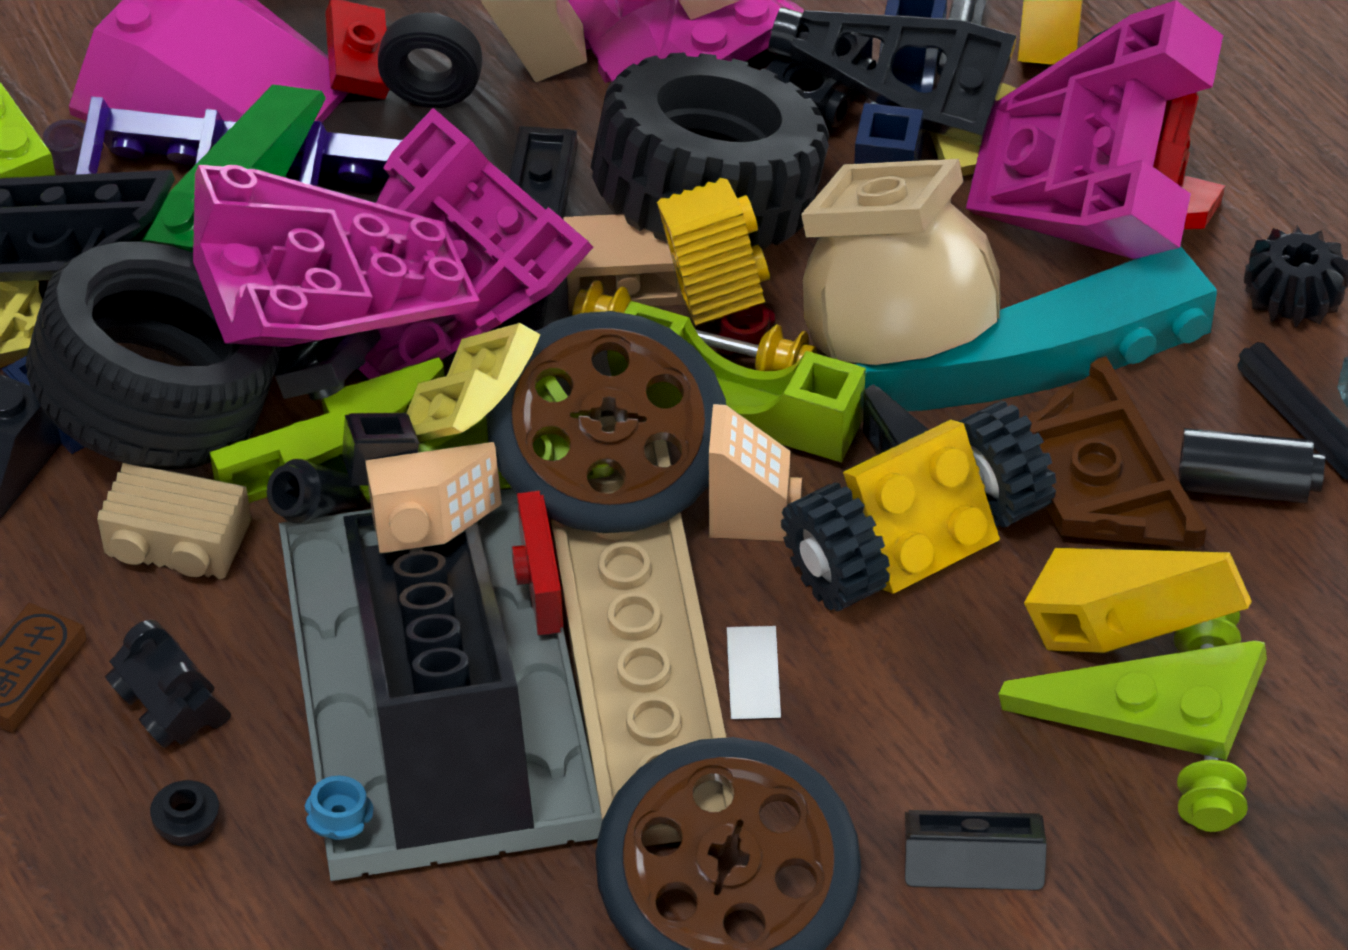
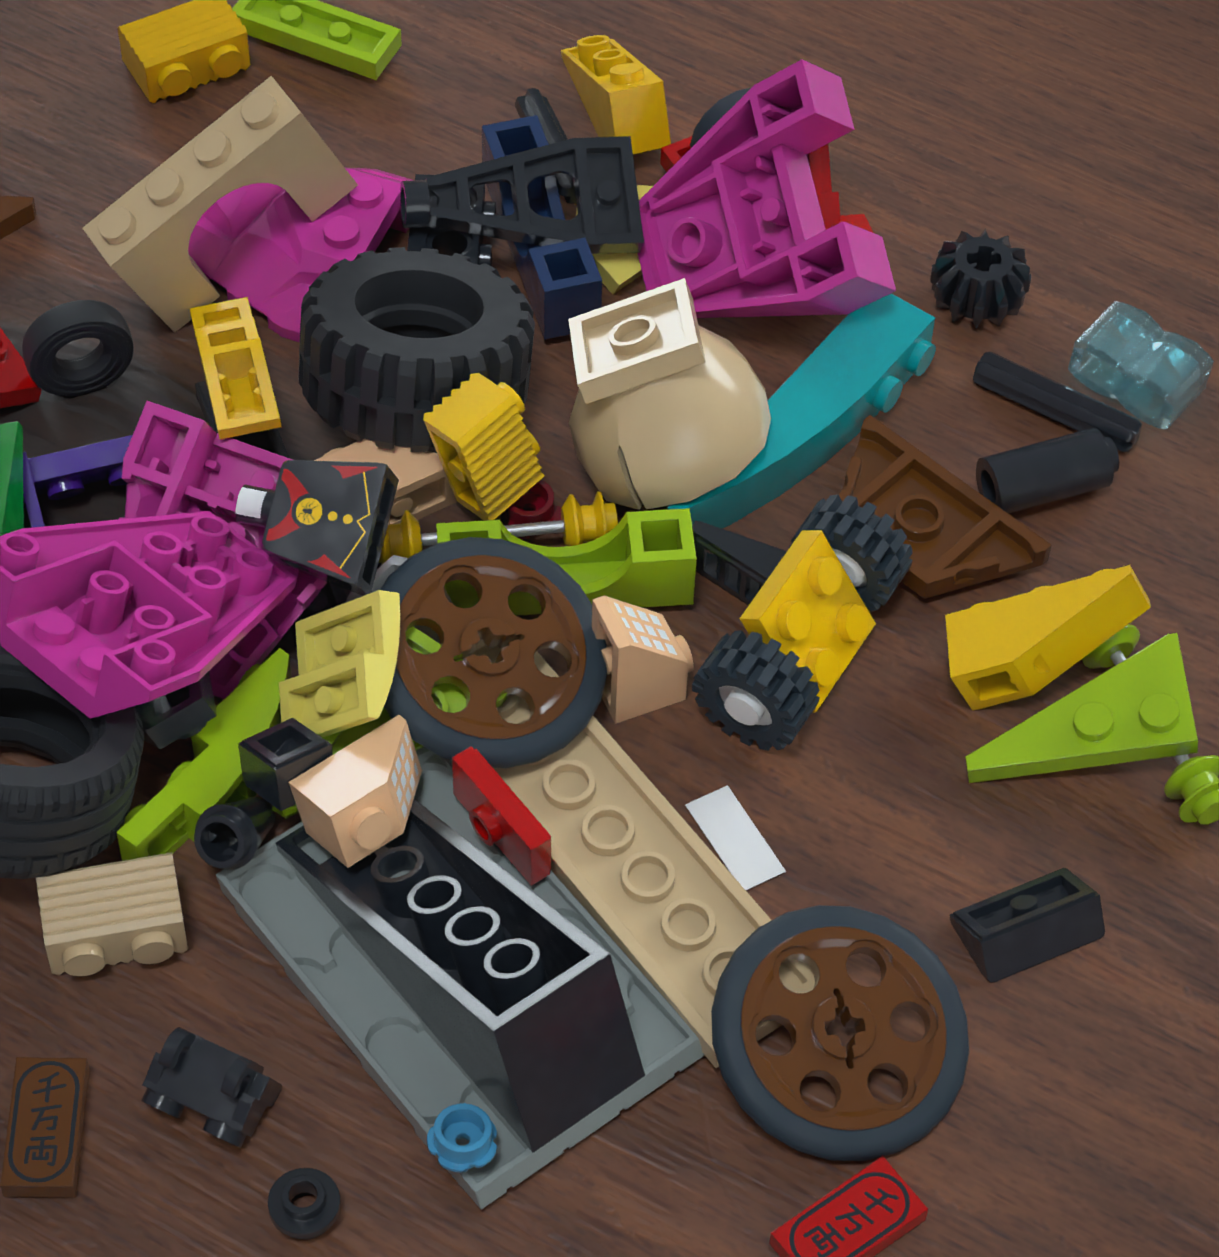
camera: 30 degrees left, 5 degrees up
(522, 253) = (325, 518): none -> black torso
(549, 119) = (234, 368): none -> yellow slope

